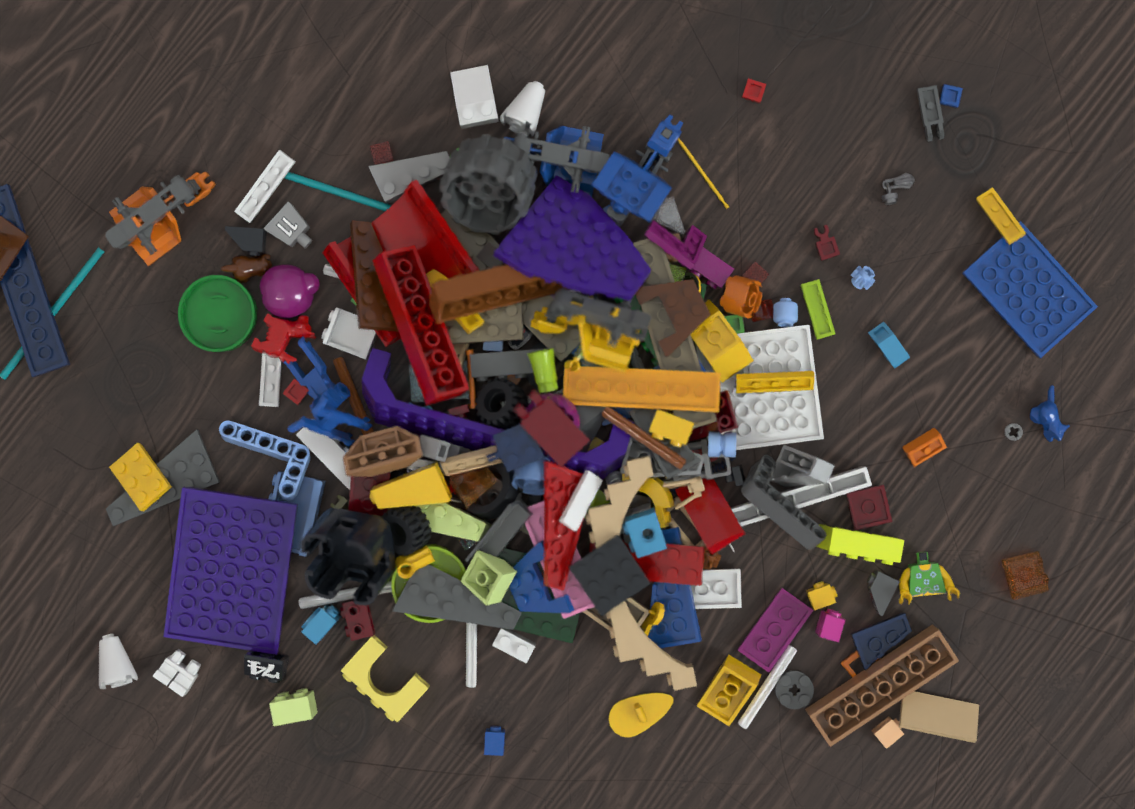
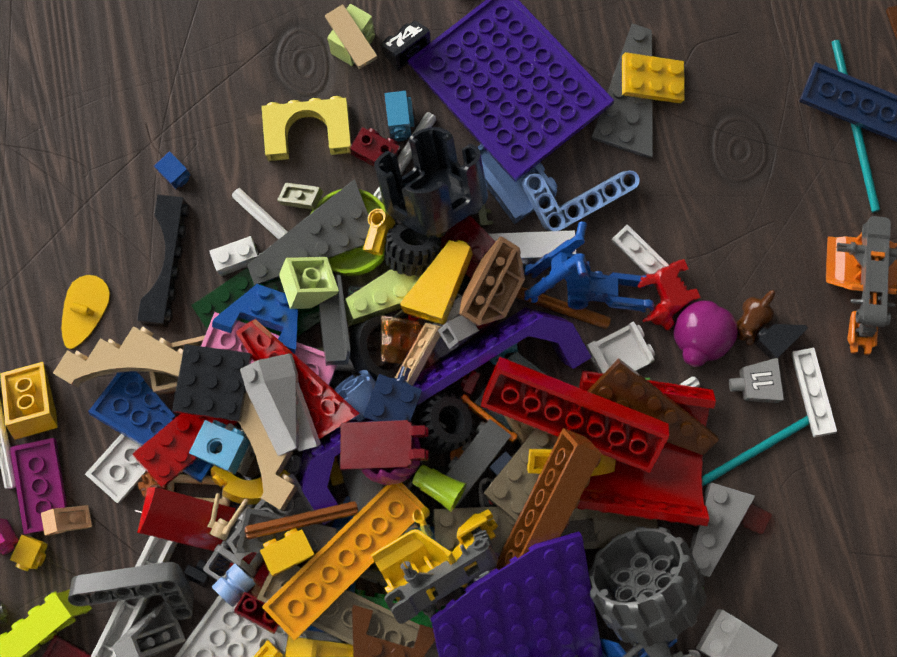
camera: 135 degrees right, 10 degrees down
(217, 313) = (736, 257): green piece -> none
(296, 392) = (611, 263): red plate -> none
(297, 702) = (351, 36): none -> tan tile
(435, 639) = (300, 196): none -> plate
(581, 527) = (273, 395): none -> light grey wedge
(592, 666) = (156, 304): none -> black arch
(654, 618) = (145, 393): yellow piece -> none
(780, 591) = (66, 519): none -> light nougat plate

